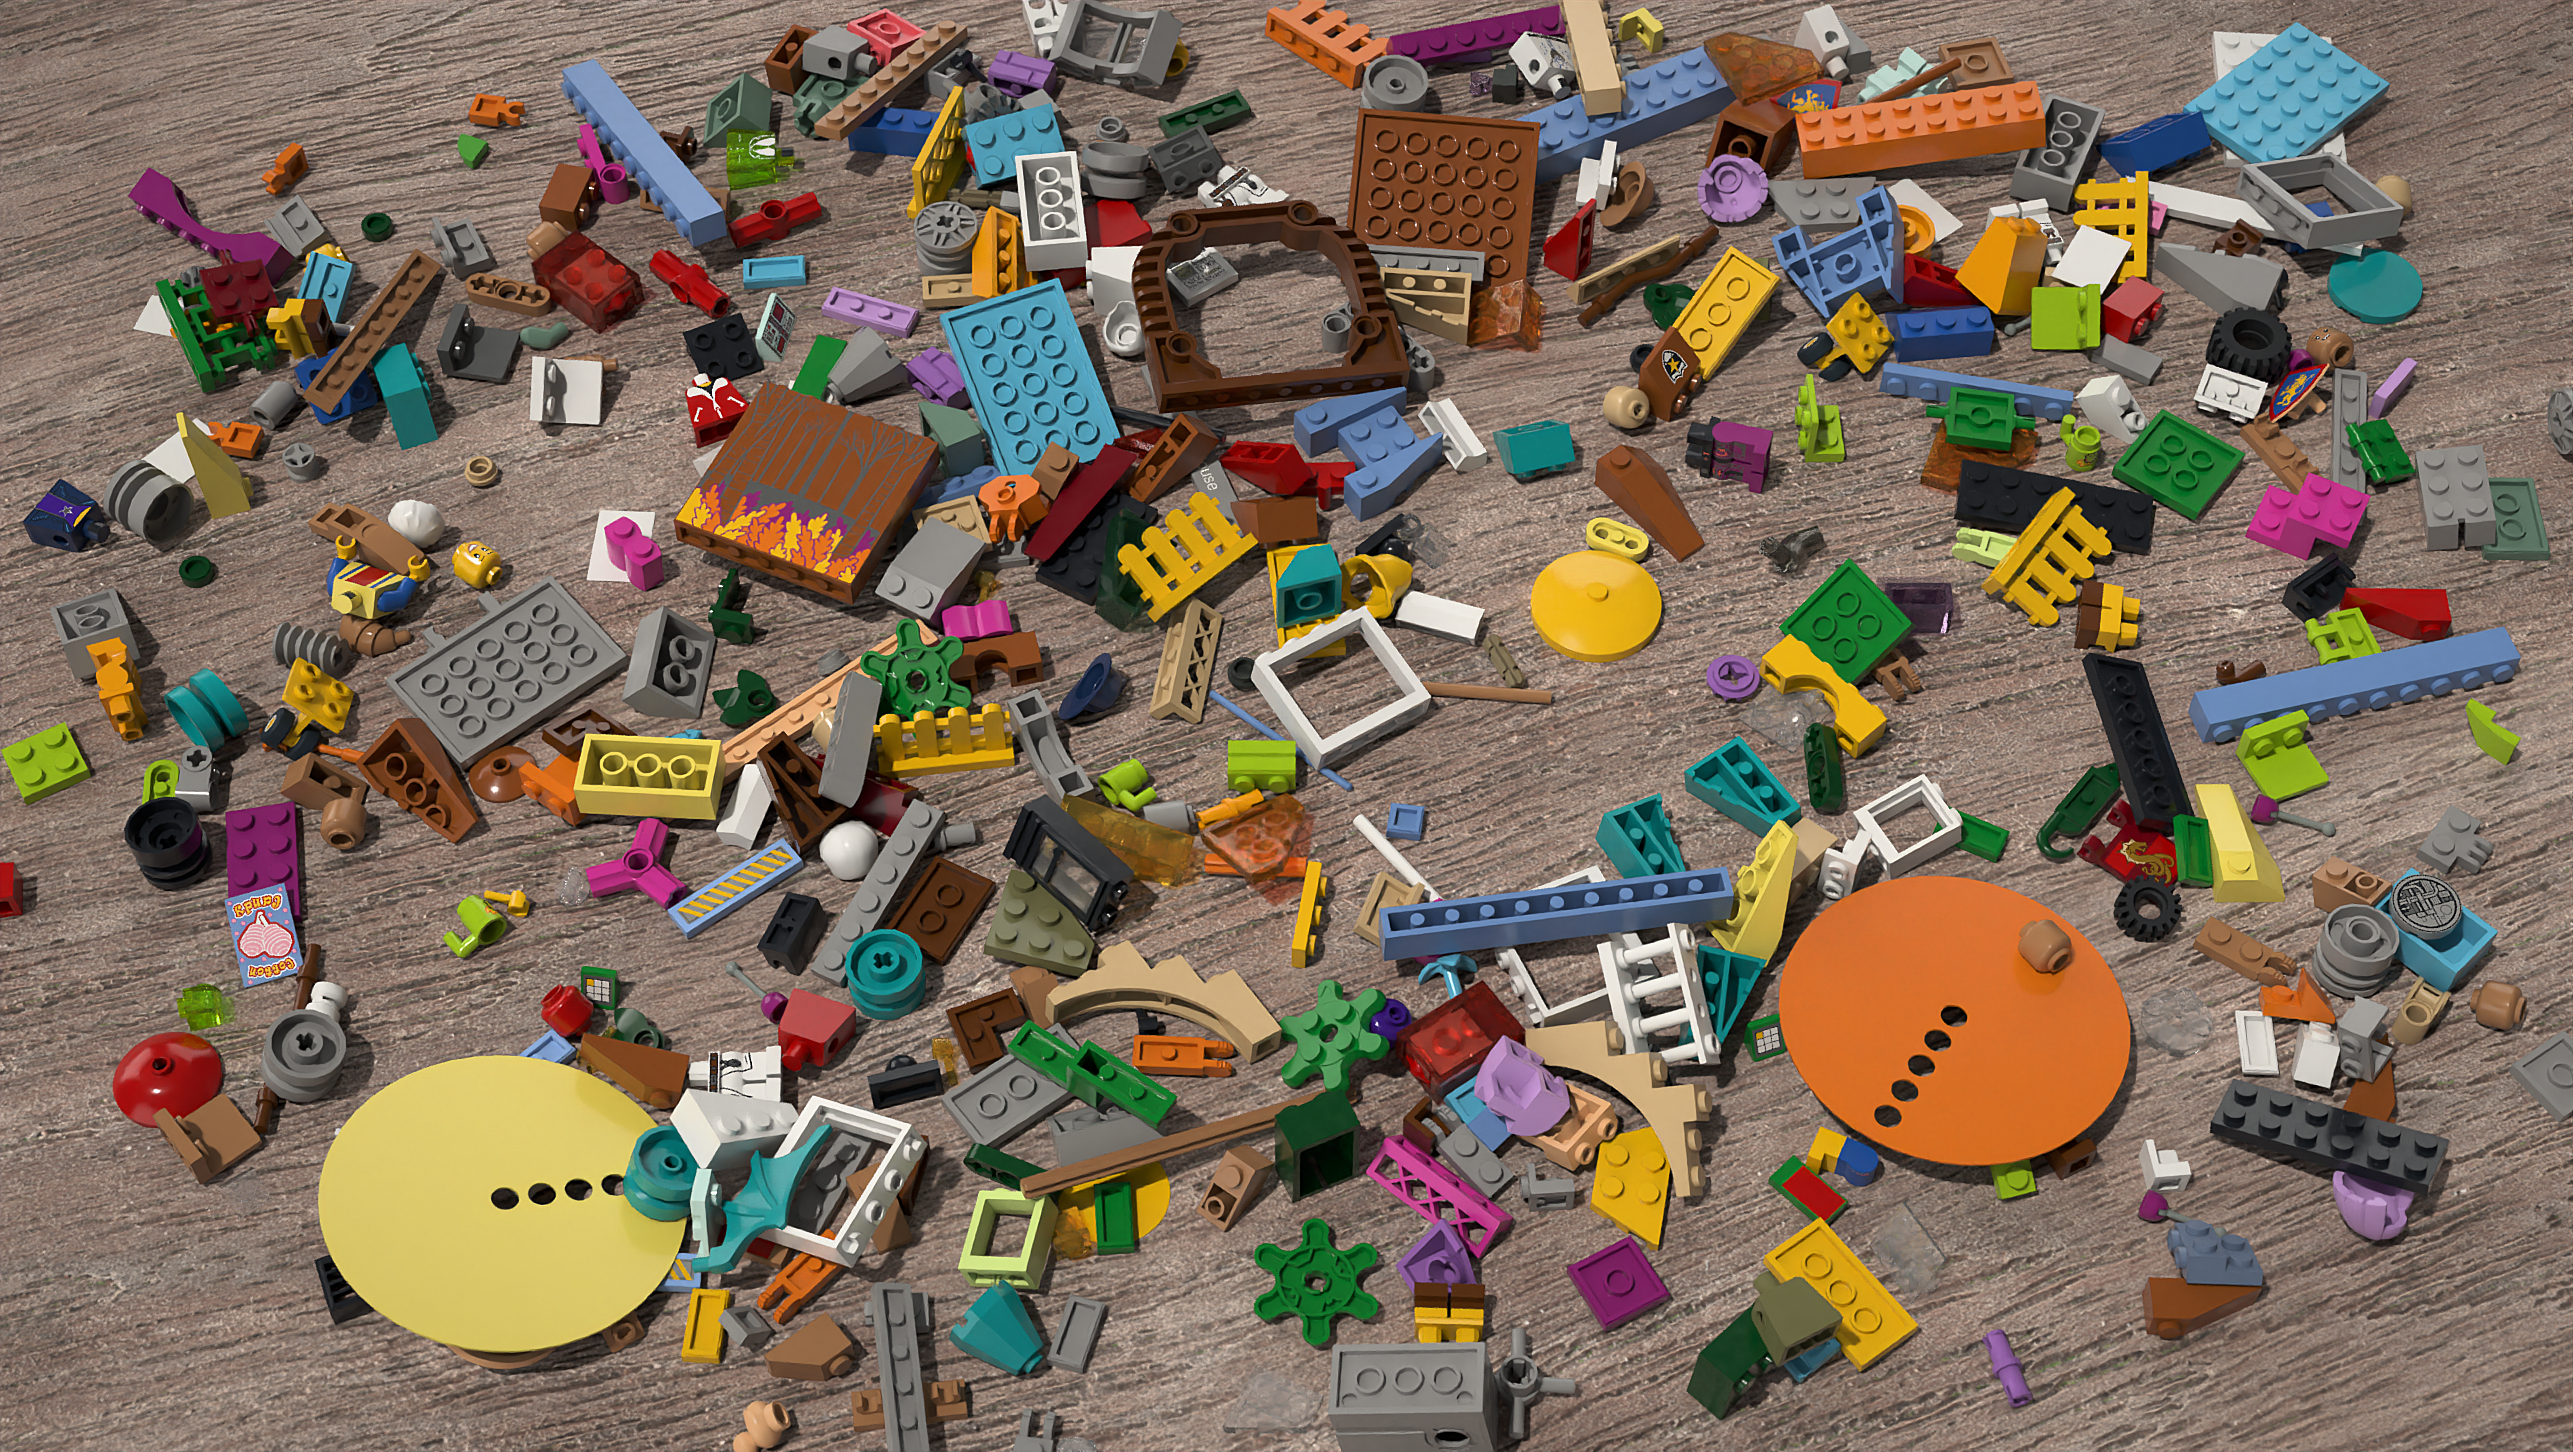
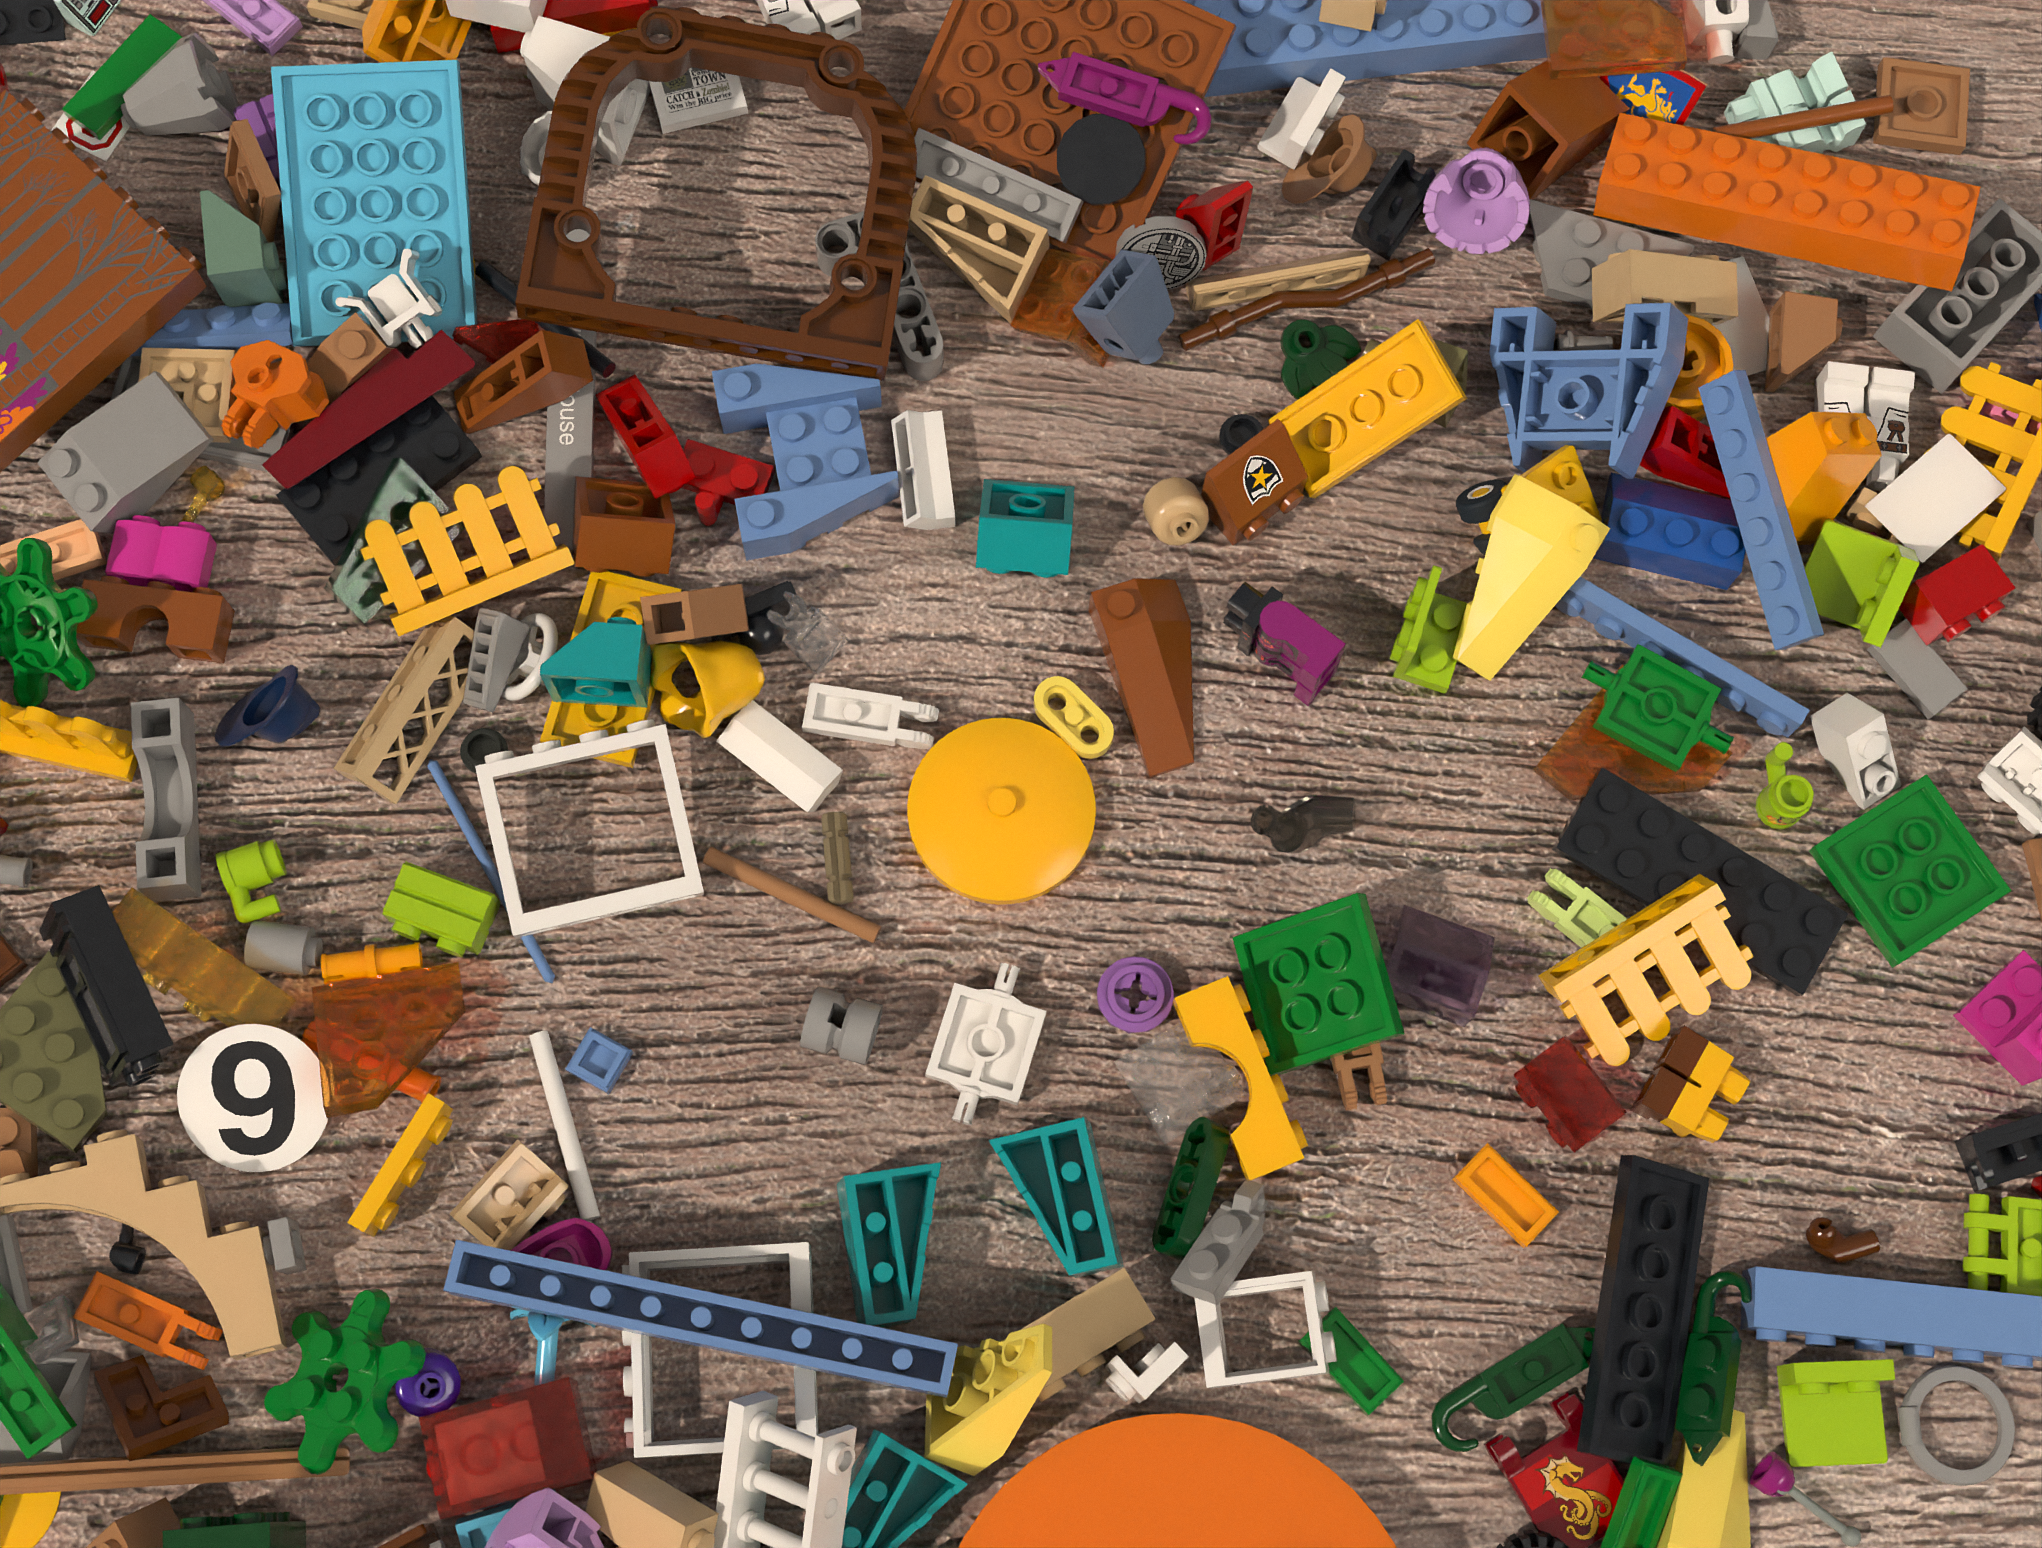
camera: 15 degrees right, 20 degrees up
(938, 387) = (251, 178): none -> medium nougat tile
(1072, 433) = (398, 305): none -> white piece
(1191, 905) = (252, 1098): none -> white sticker
(1216, 1101) = (156, 1419): none -> reddish brown plate
(1226, 603) = (492, 657): none -> light grey slope
(1255, 612) = (532, 656): none -> white piece
(1255, 980) = (284, 1246): none -> light grey plate
(1354, 537) = (694, 614): none -> medium nougat slope
(1485, 578) = (865, 716): none -> white hinge
(1486, 181) = (1123, 93): none -> magenta plate
(1487, 226) = (1101, 159): none -> black tile
(1543, 302) = (1128, 307): none -> sand blue torso
(1549, 268) = (1173, 242): none -> light grey tile
(1555, 747) = (858, 1029): none -> light grey wheel
(1652, 731) = (985, 1044): none -> white plate
(1678, 209) = (1393, 207): none -> black hinge
(1840, 201) = (1694, 285): none -> tan wedge
(1860, 786) = (1223, 1246): none -> light grey hinge
(1864, 360) = (1530, 562): none -> light yellow wedge
(1963, 203) = (1799, 335): none -> medium nougat slope
(1990, 290) = (1760, 510): none -> medium blue plate
(2020, 715) = (1505, 1195): none -> light orange tile
(2032, 643) = (1568, 1095): none -> clear red bracket
(2195, 760) = (1710, 1370): none -> dark green plate
(2349, 772) = (1911, 1428): none -> light grey piece

